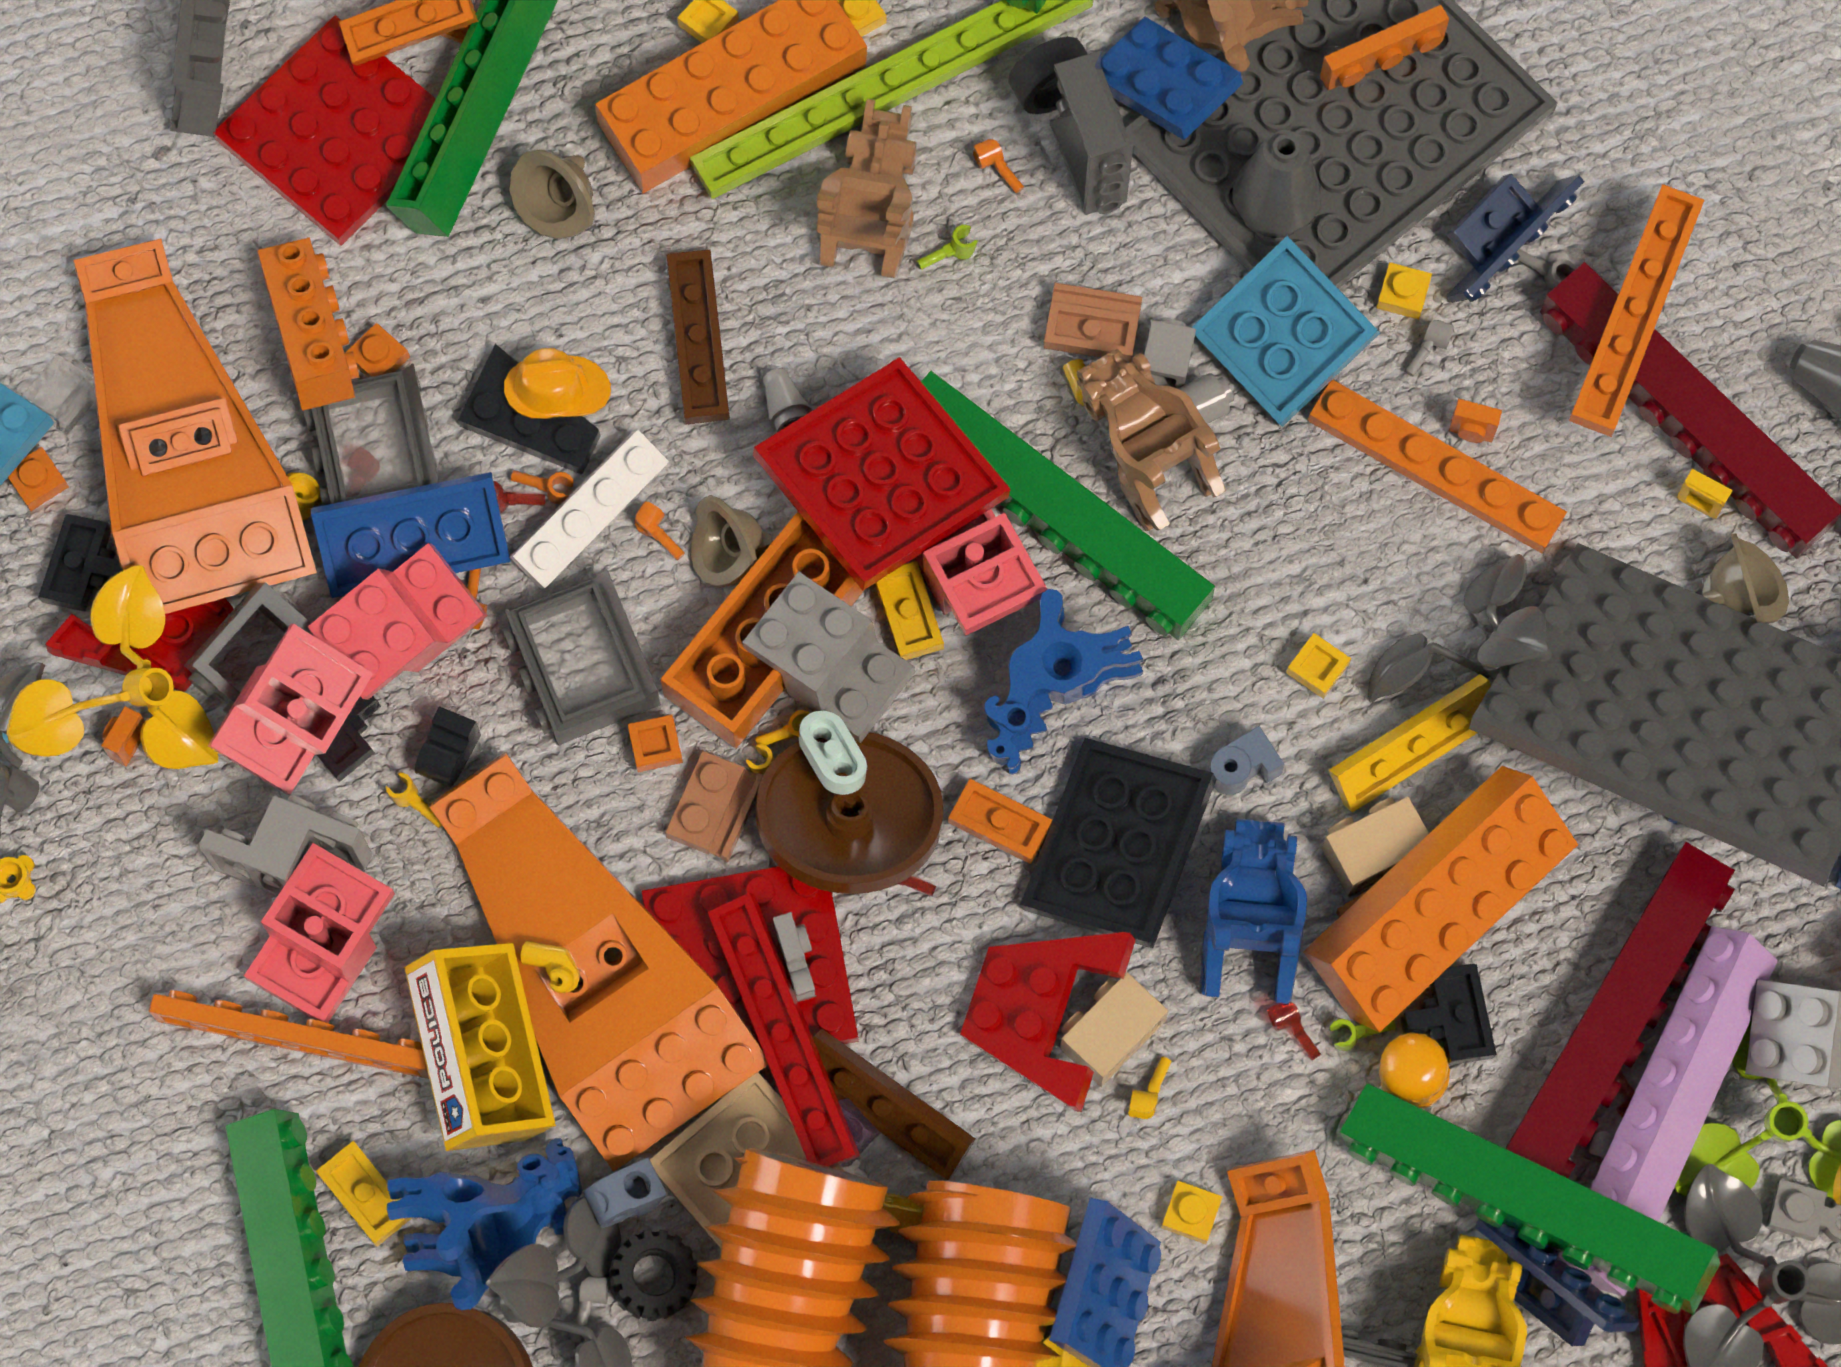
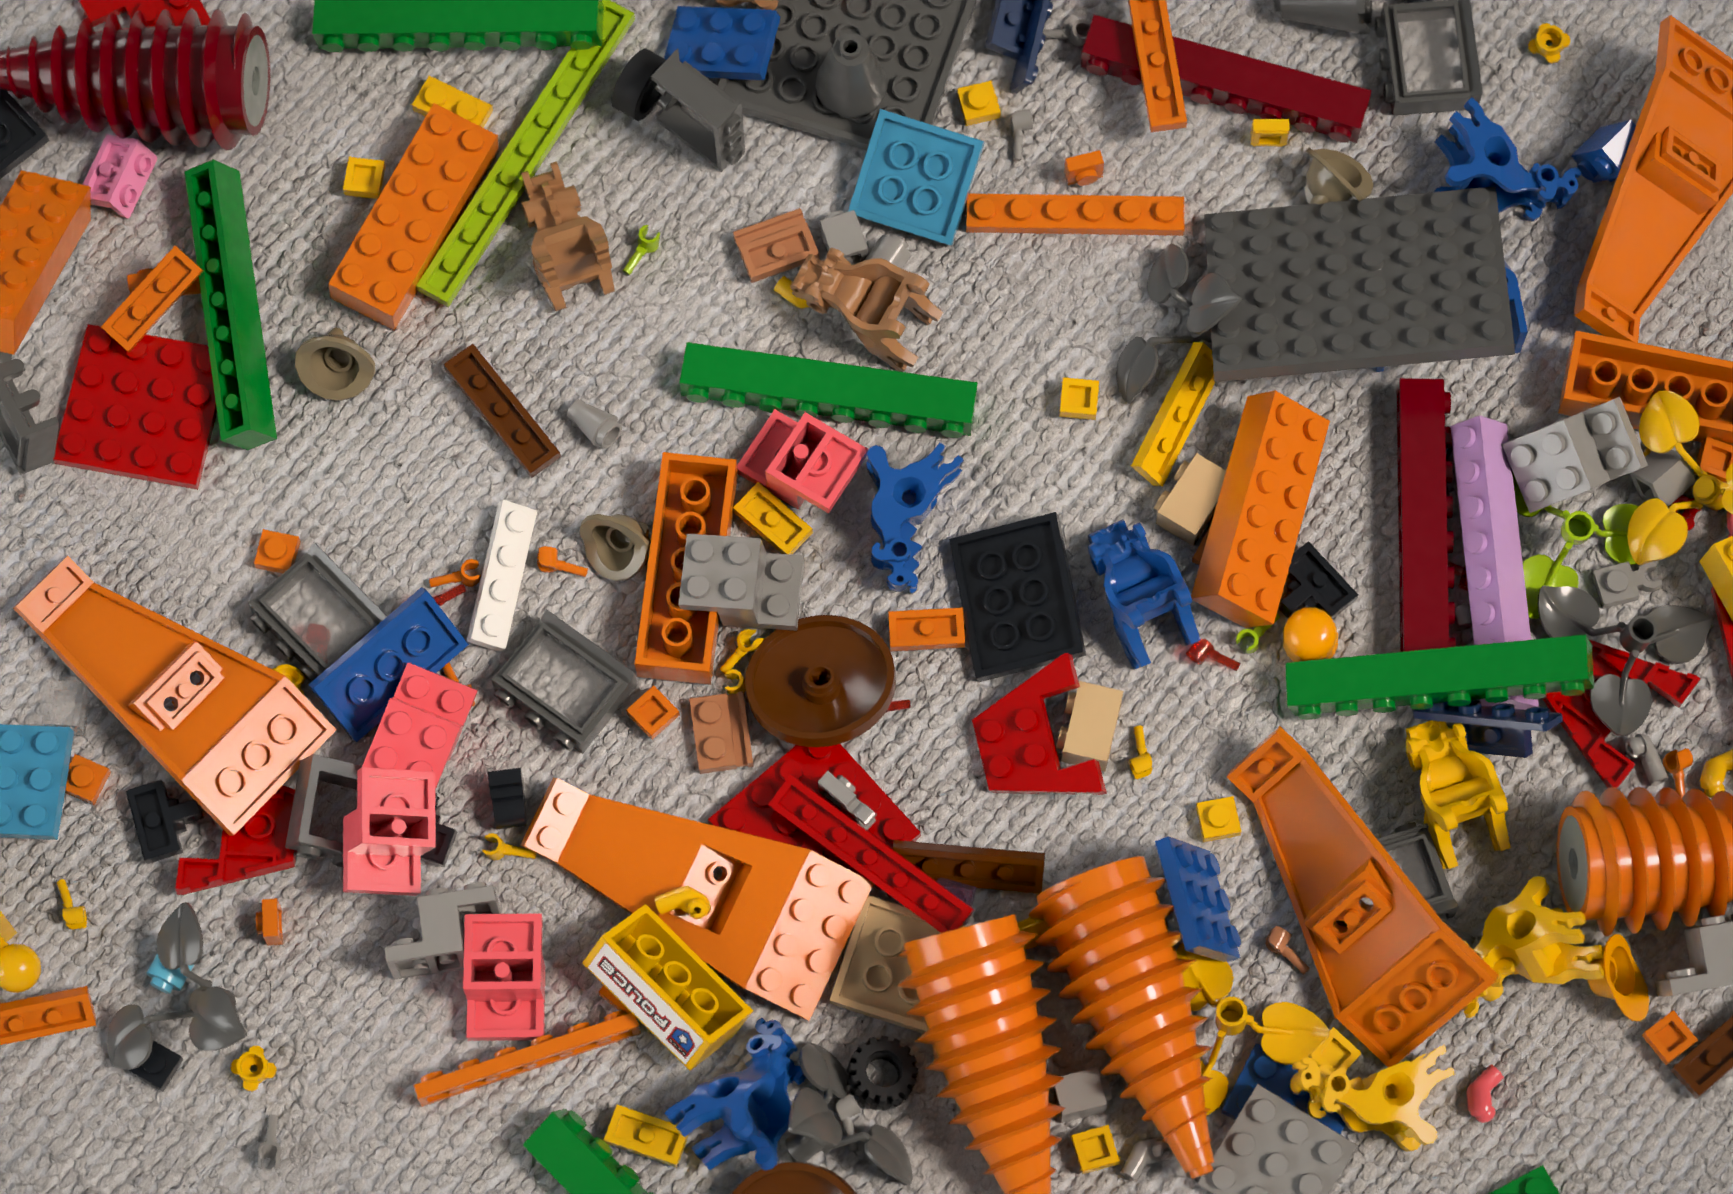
camera: 30 degrees left, 0 degrees up
(129, 614) = (308, 900): yellow plant -> none
(307, 324) = (218, 556): orange brick -> none
(556, 385) = (422, 502): light orange piece -> none
(558, 440) = (413, 534): black wing -> none
(625, 1194) = (829, 1032): sand blue leg -> none
(836, 755) = (788, 647): light aqua plate -> none
(881, 473) = (701, 432): red plate -> none
(990, 153) = (629, 164): orange hand -> none
(1243, 760) = (1067, 491): sand blue leg -> none

